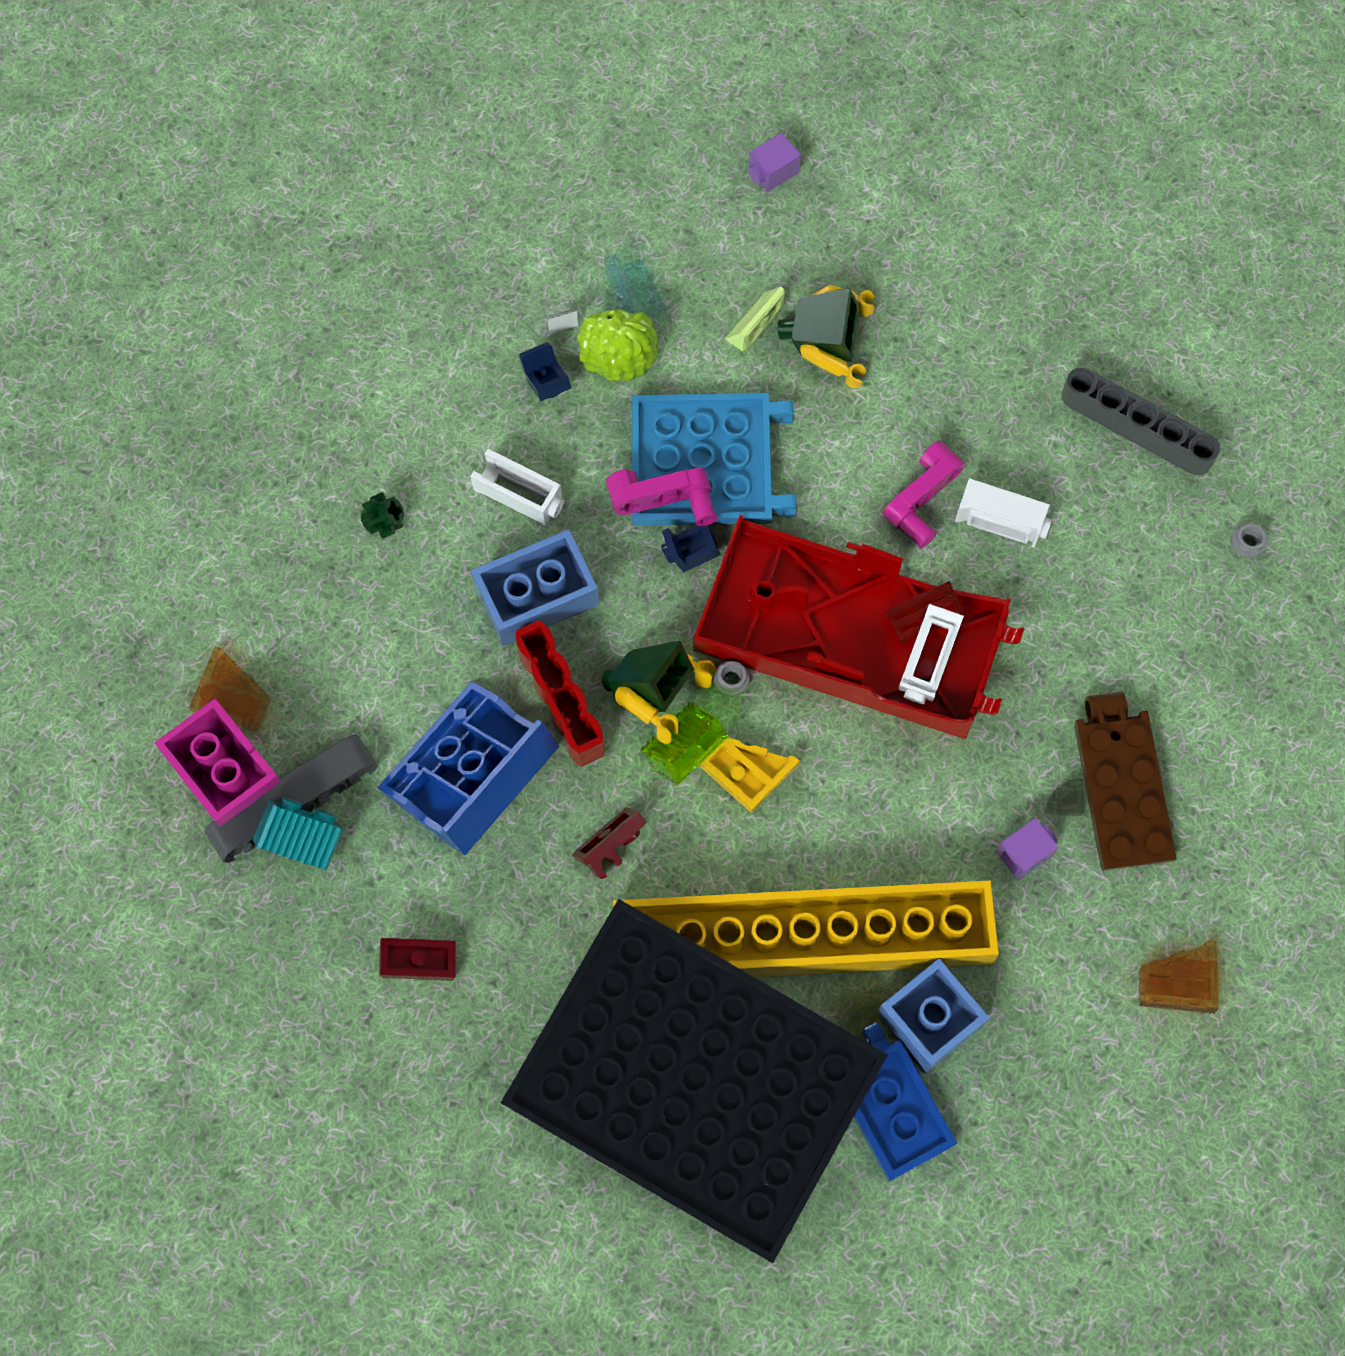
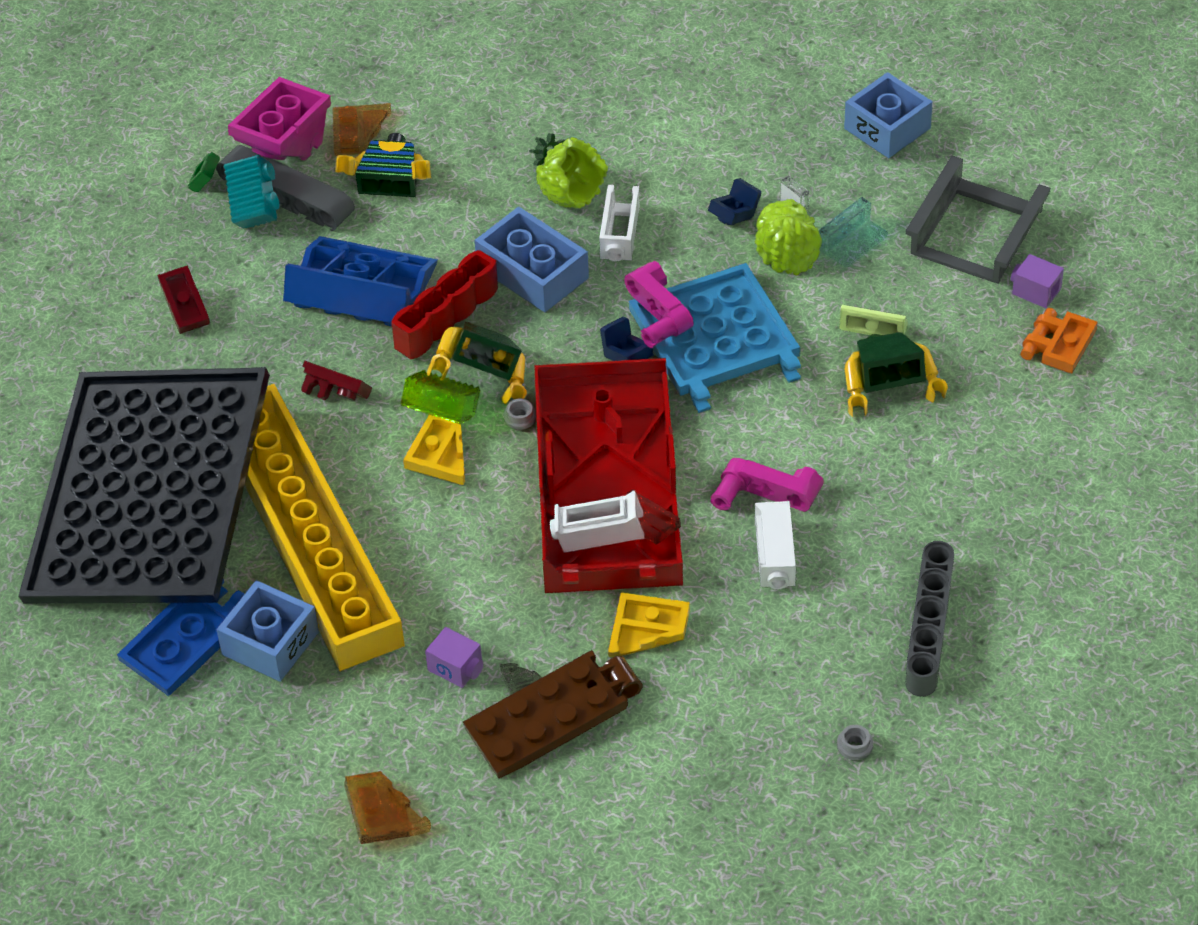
camera: 70 degrees right, 20 degrees down
(224, 876) = (203, 172): none -> green tile
(322, 678) = (386, 167): none -> torso
(434, 505) = (571, 173): none -> lime hair
(498, 189) = (888, 115): none -> medium blue brick
(707, 146) = (939, 199): none -> dark grey piece
(857, 171) = (1067, 344): none -> orange plate
(1048, 661) = (647, 623): none -> yellow wing

